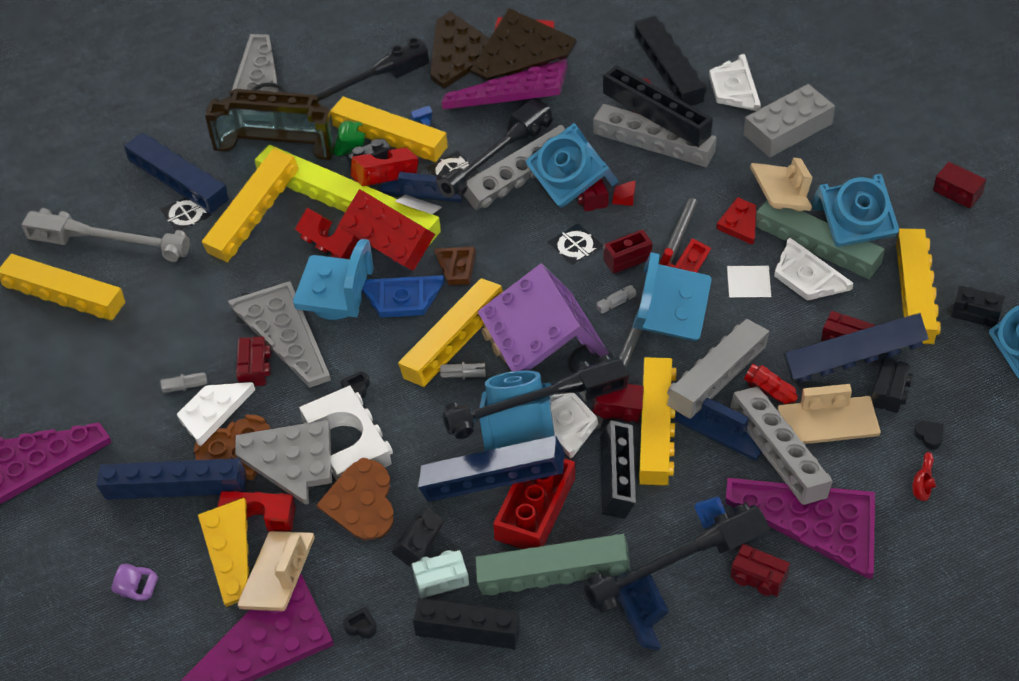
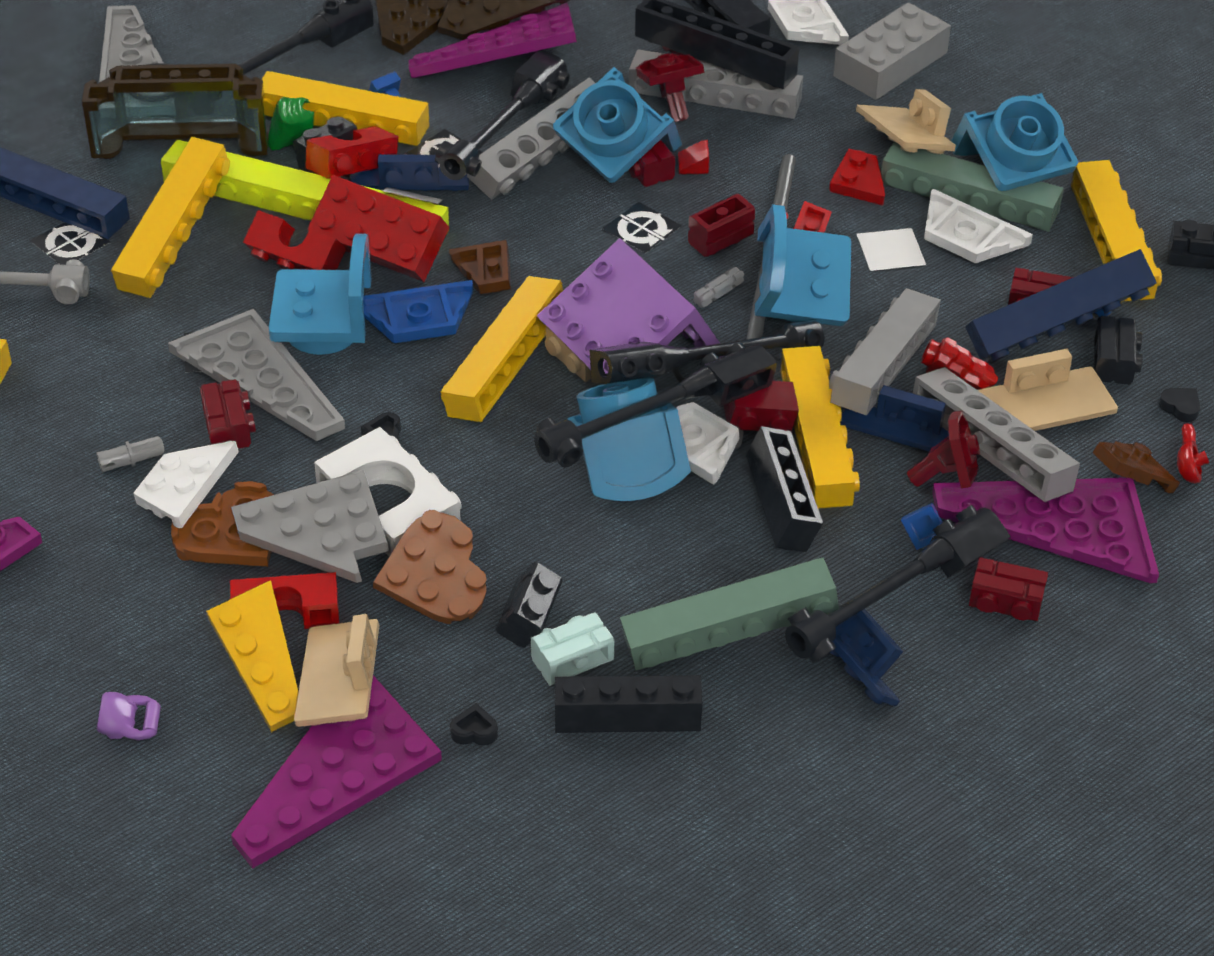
camera: 15 degrees left, 5 degrees down
(171, 478) = (149, 573): dark blue brick -> none
(462, 370) = (532, 395): light grey axle -> none
(491, 469) = (614, 503): dark blue brick -> none
(533, 509) = (680, 538): red brick -> none
(541, 360) = (652, 359): none -> black bar
(618, 126) = (669, 73): none -> dark red piece
(747, 458) = (950, 455): none -> dark red piece
(879, 480) = (1134, 462): none -> reddish brown wing
(959, 185) = (1135, 107): dark red brick -> none

